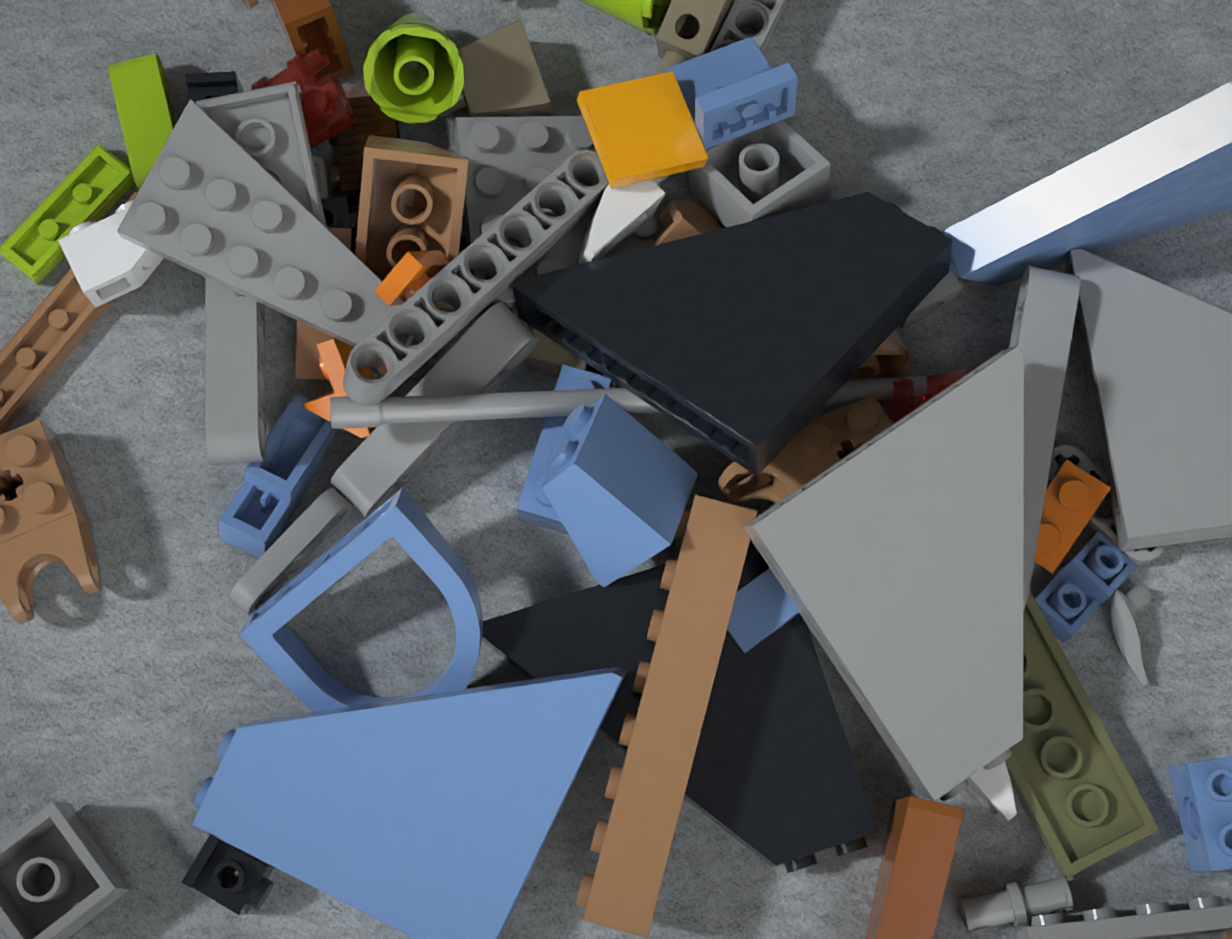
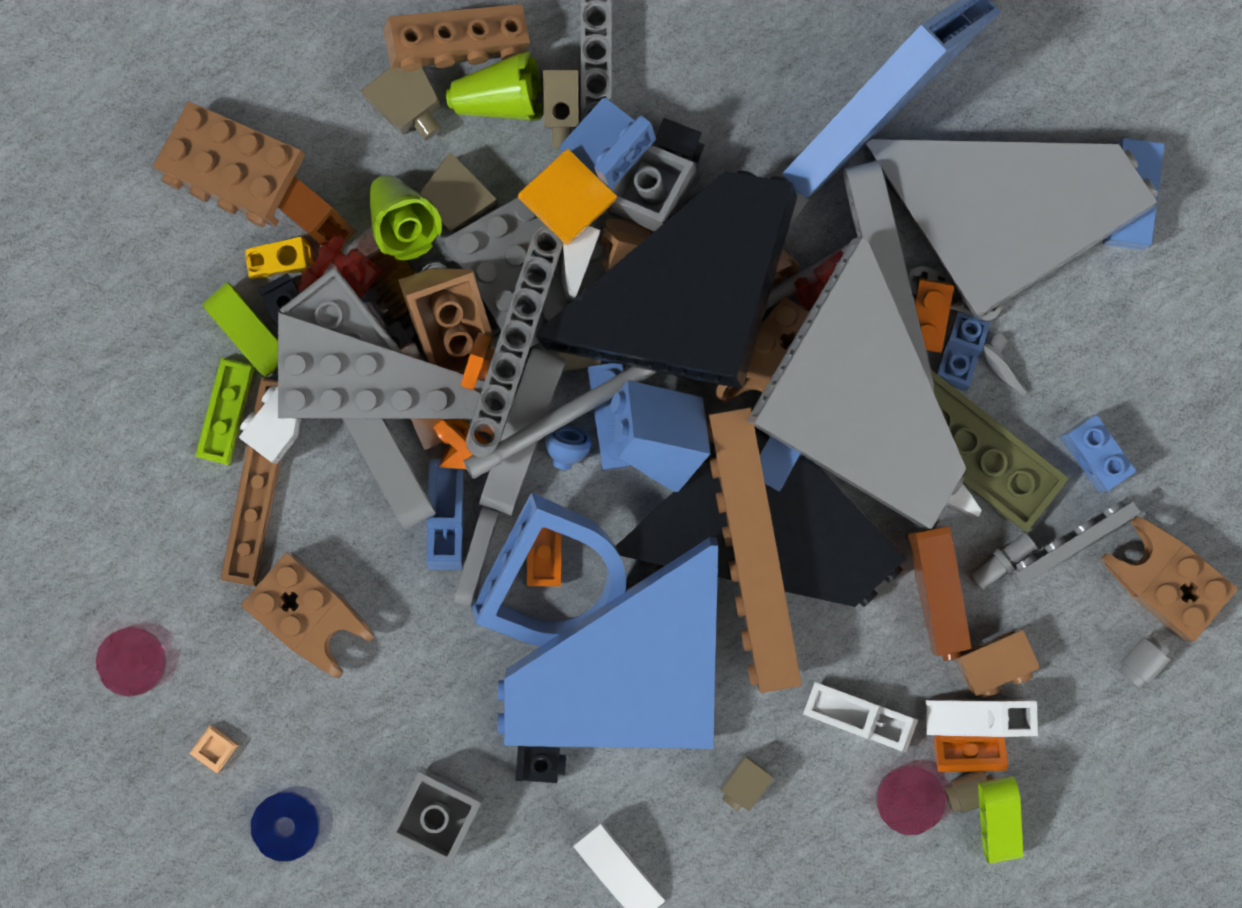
camera: 25 degrees left, 10 degrees up
(237, 49) = (279, 258): none -> yellow leg
(382, 592) = (545, 559): none -> orange plate
(485, 460) = (567, 446): none -> medium blue brick
(828, 137) = (679, 140): none -> black brick

